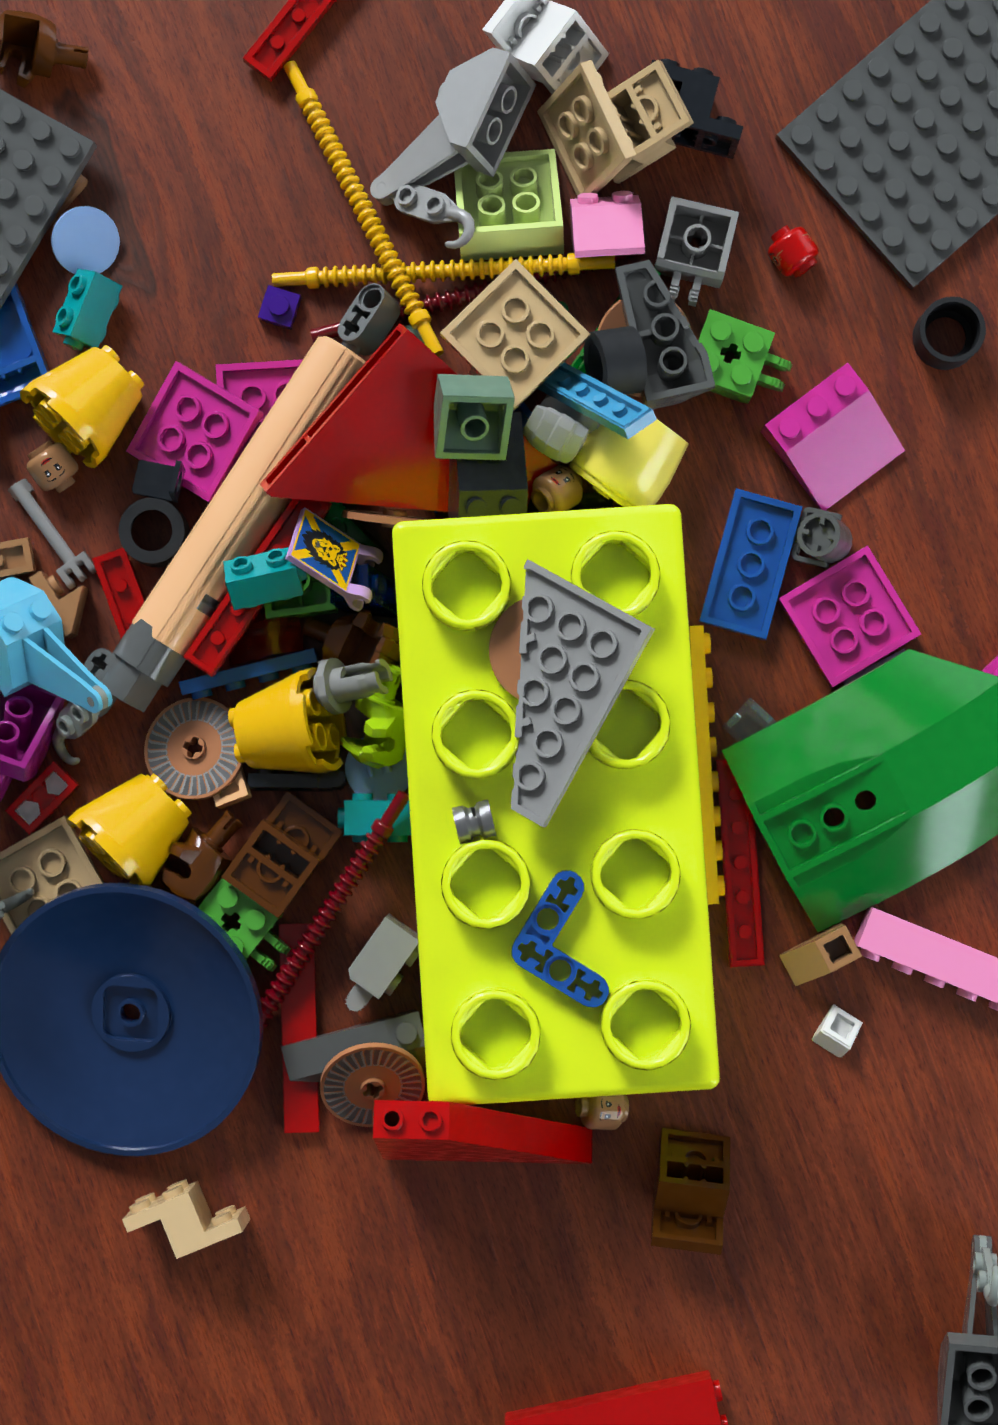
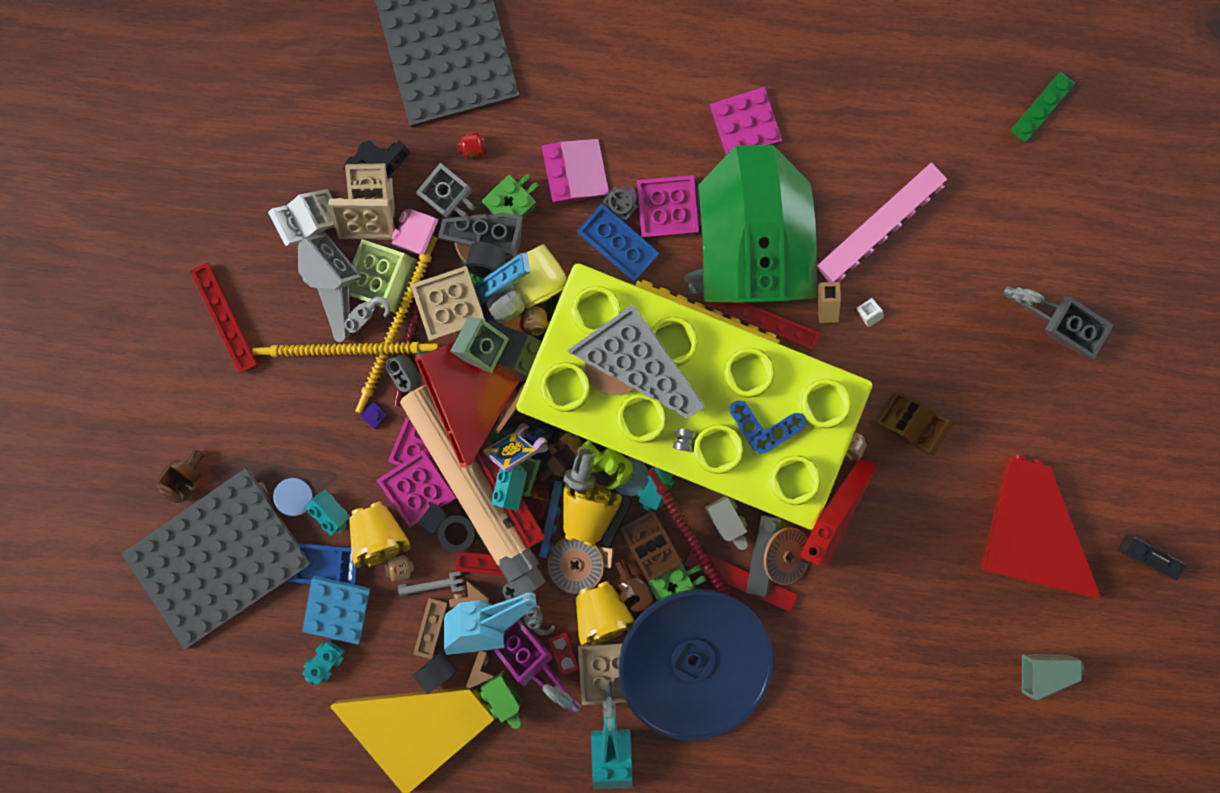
camera: 65 degrees left, 0 degrees up
(186, 1217) = (809, 681): tan bracket -> none
(964, 313) = (544, 76): black piece -> none

